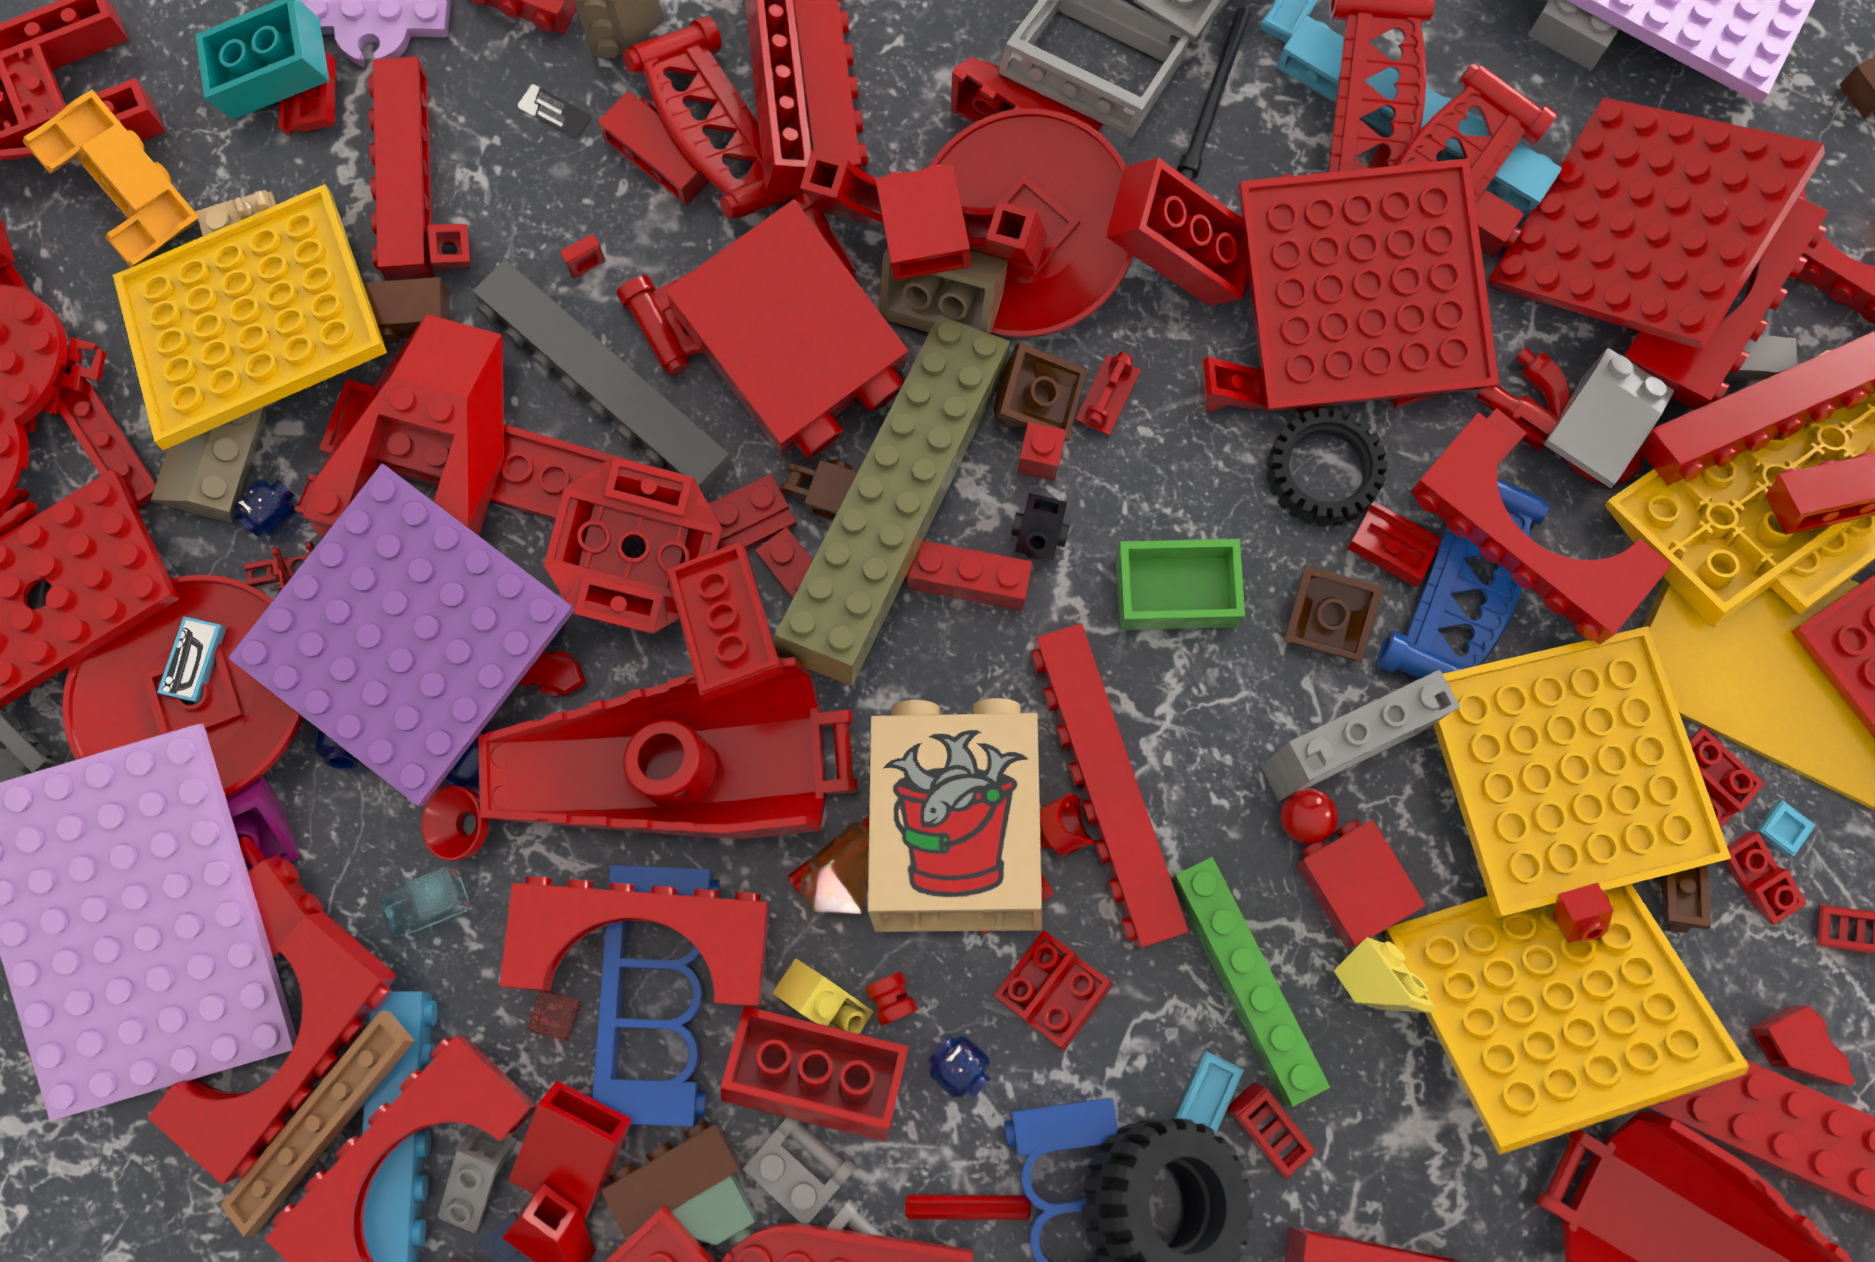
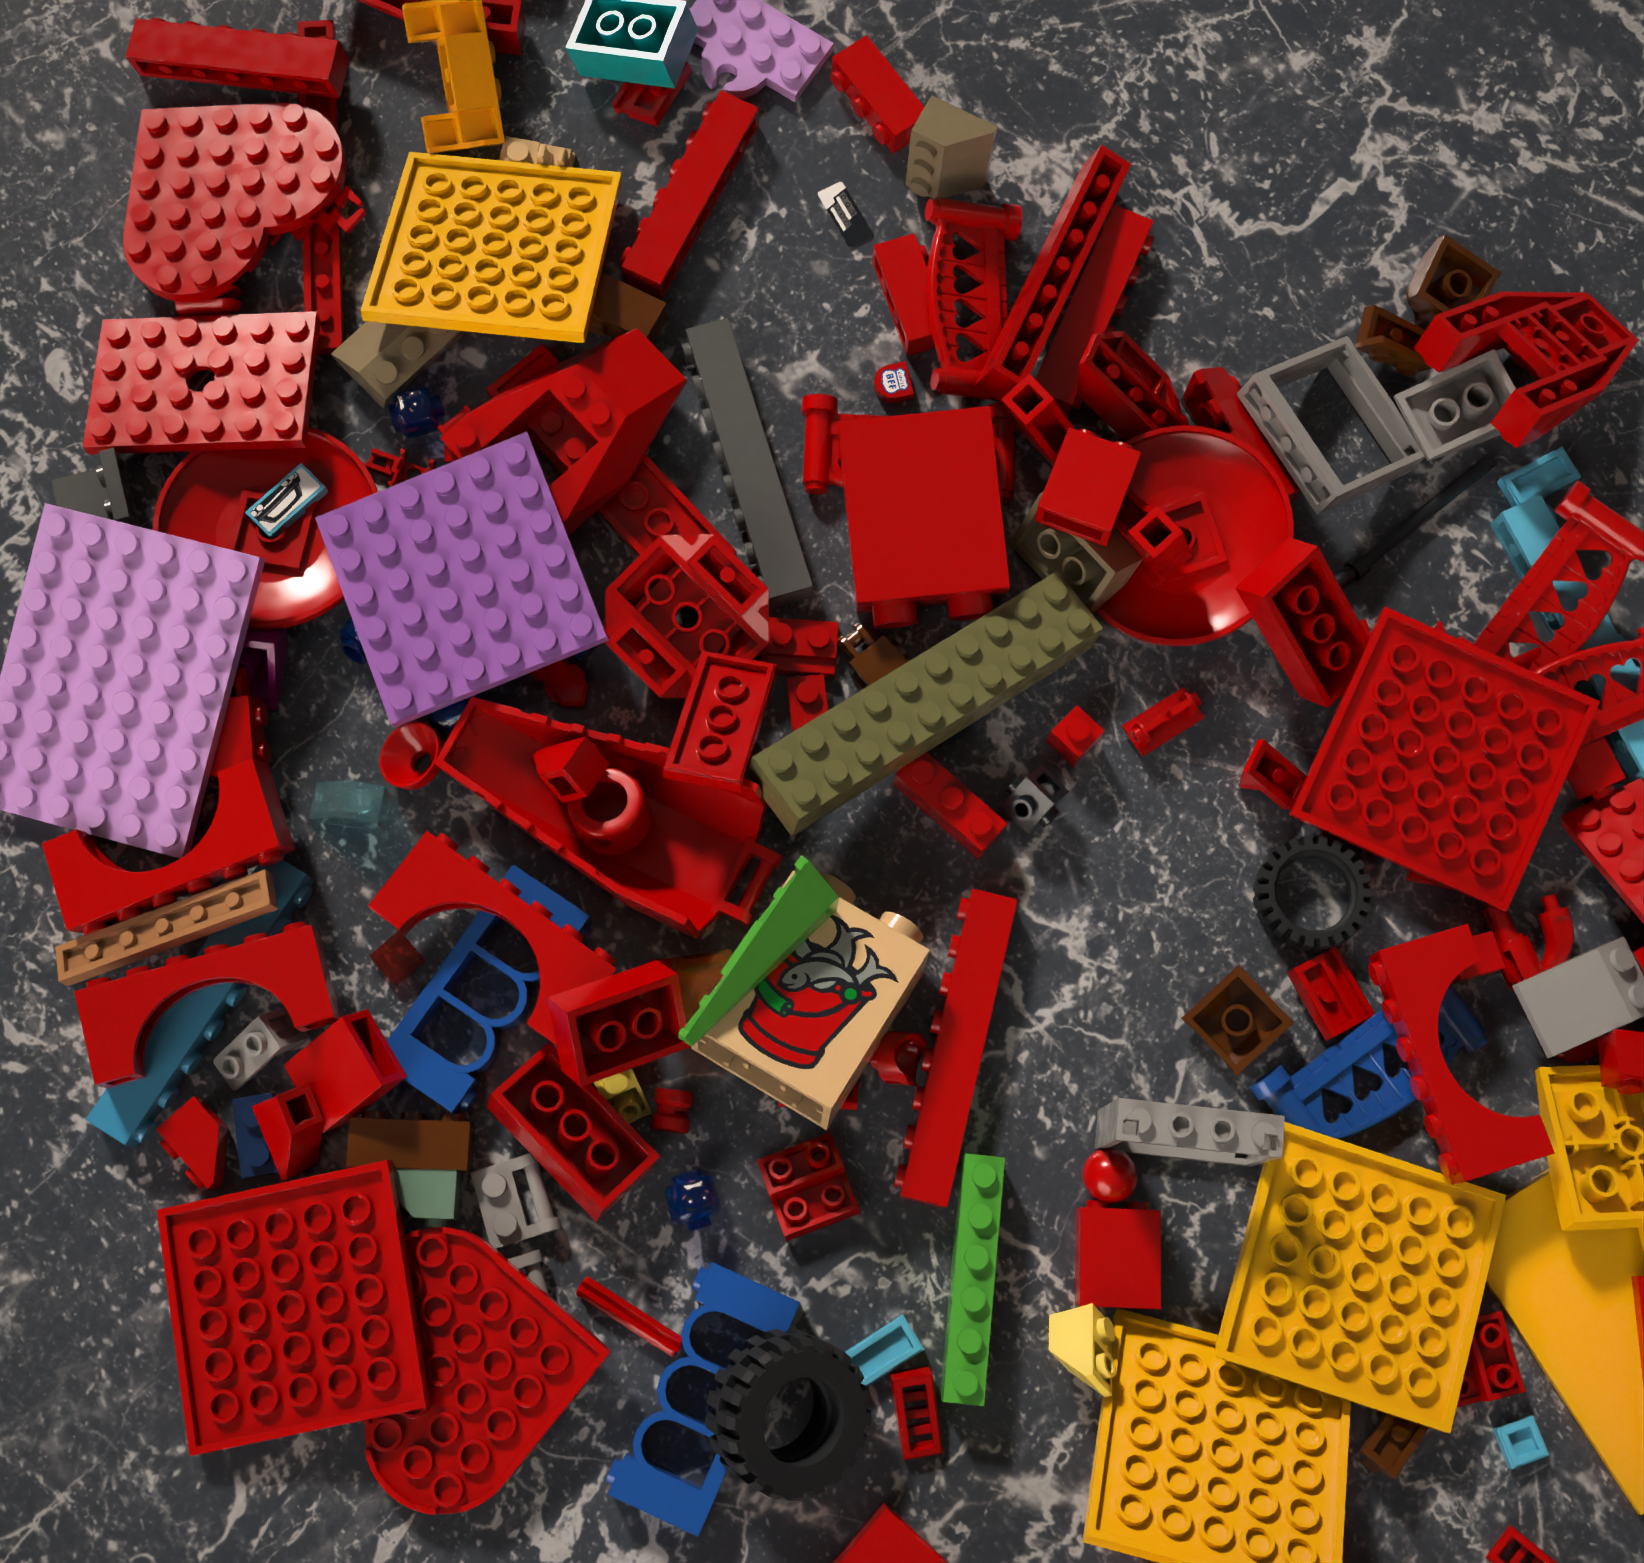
camera: 30 degrees right, 0 degrees up
(448, 234) = (690, 269): red plate -> none
(583, 256) = (794, 351): red tile -> none
(611, 745) = (571, 768): none -> red slope
(690, 235) = (893, 383): none -> tile
(799, 949) = (618, 1022): none -> red brick
(897, 770) = (781, 929): none -> bright green wedge
(899, 120) = (1126, 386): none -> red wedge
(1039, 390) = (1105, 684): reddish brown slope -> none
(1179, 584) = (1121, 916): bright green piece -> none
(1583, 913) = (1288, 1397): red plate -> none
(1762, 881) = (1471, 1470): red slope -> none

